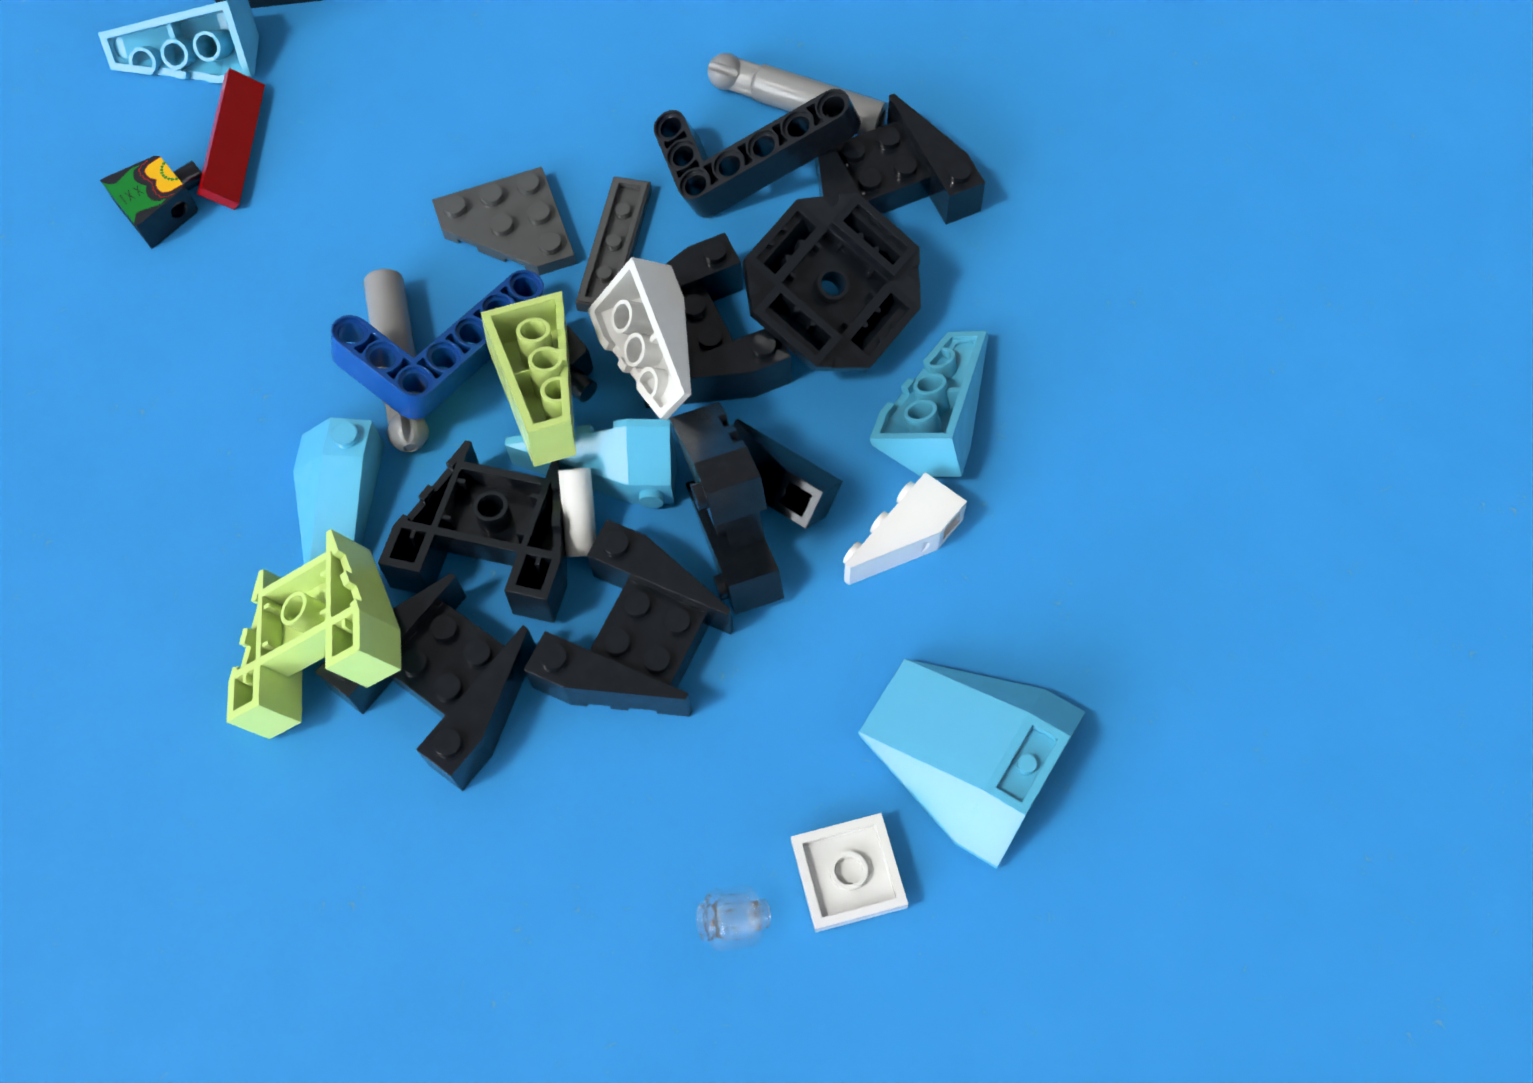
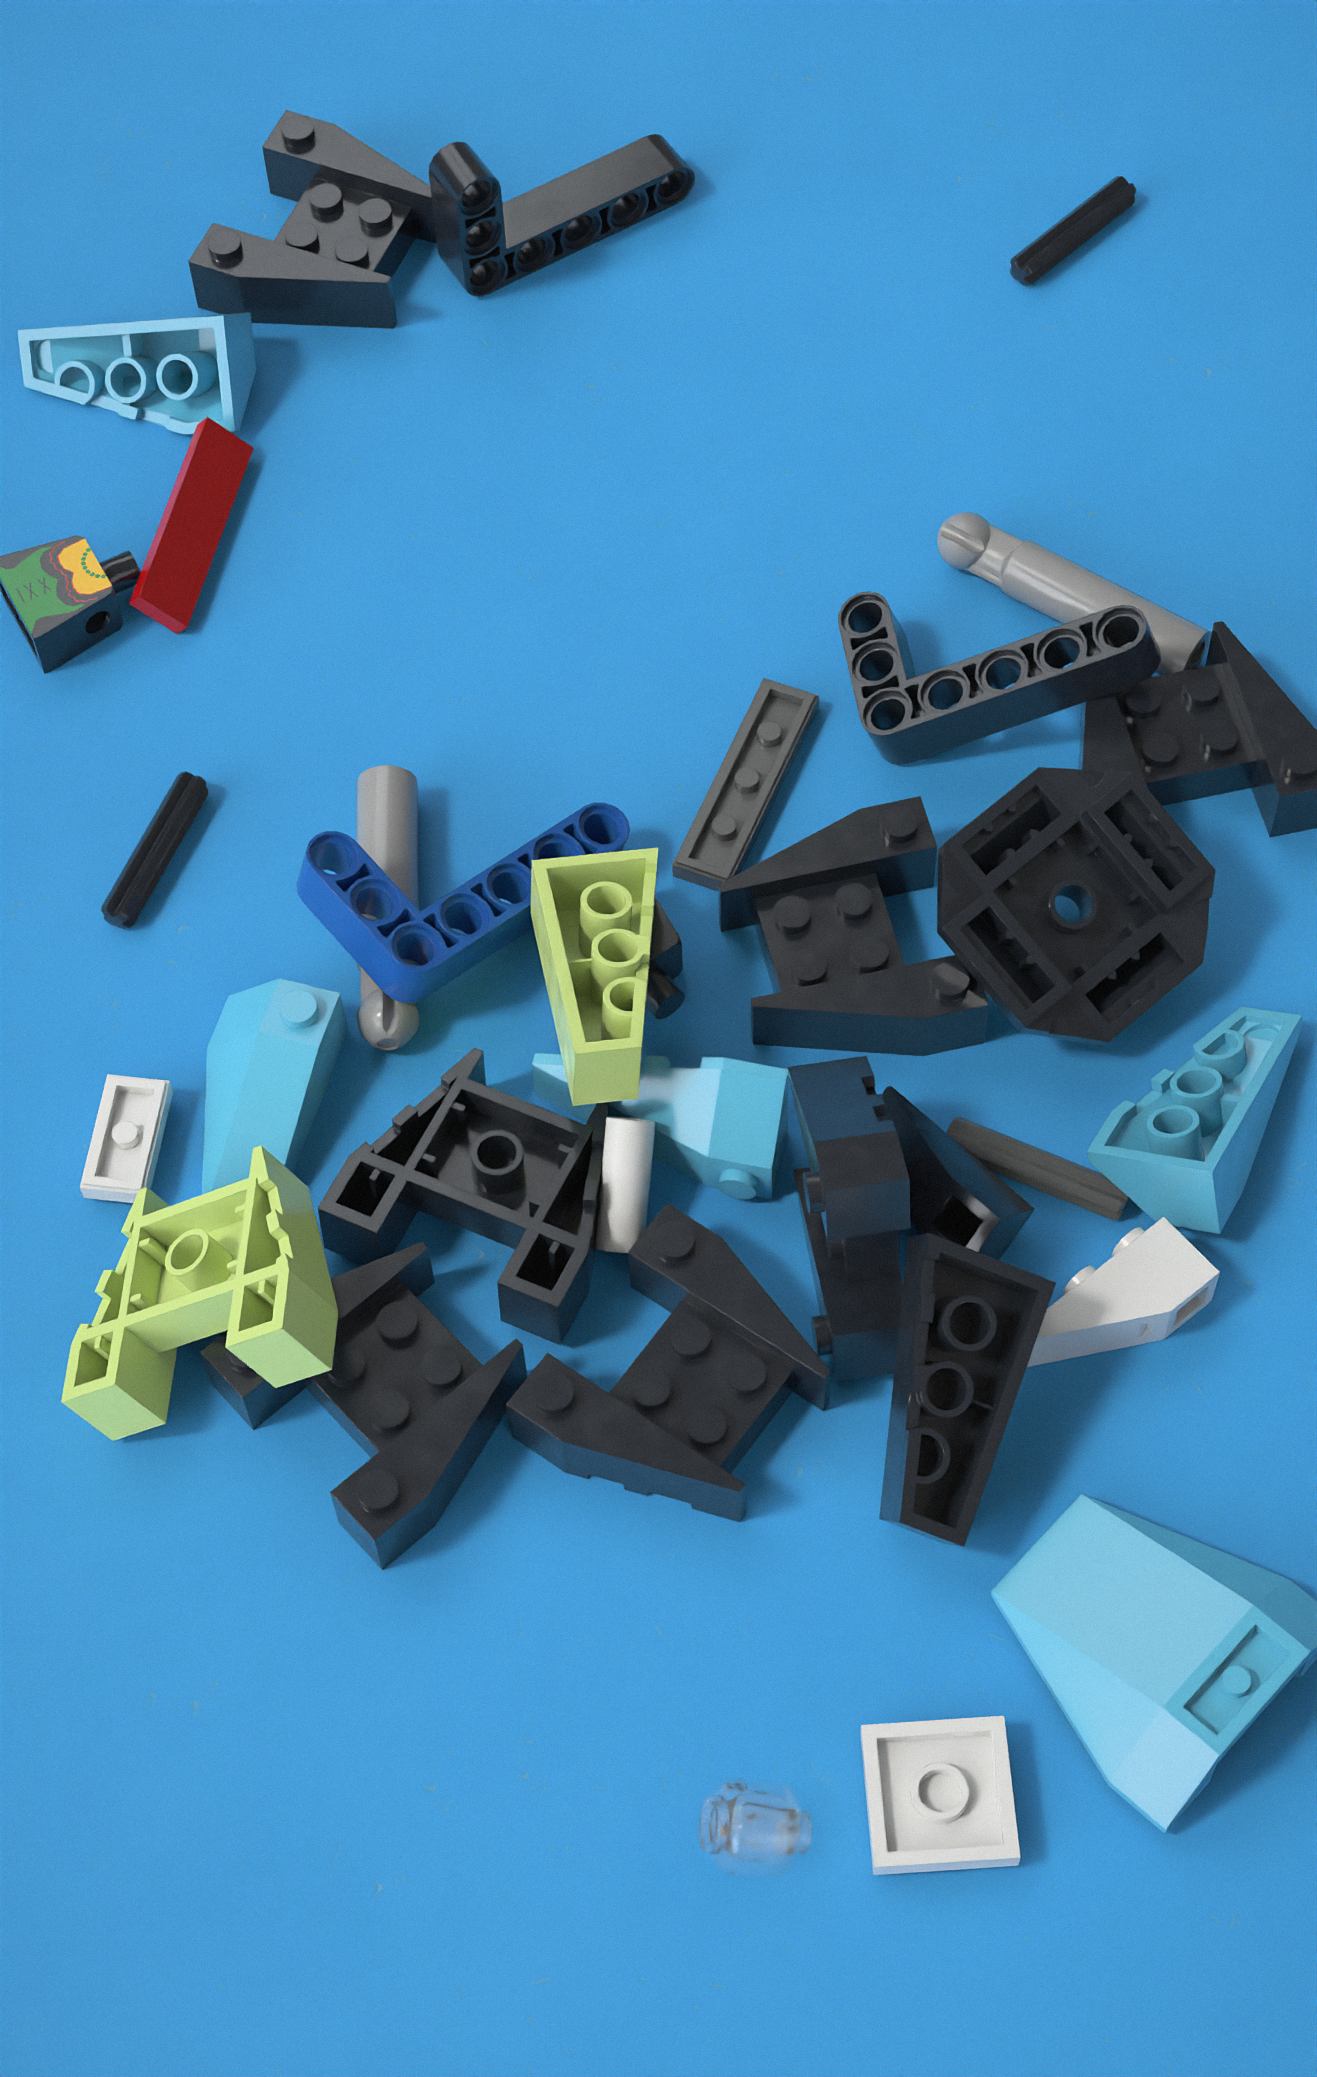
camera: 10 degrees right, 5 degrees down
(239, 349) = (154, 850): none -> black axle
(248, 538) = (126, 1138): none -> white plate
(509, 221) = (592, 722): dark grey plate -> none
(645, 327) = (775, 925): white wedge -> none
(813, 600) = (955, 1381): none -> black wedge
(841, 455) = (1040, 1169): none -> dark grey axle

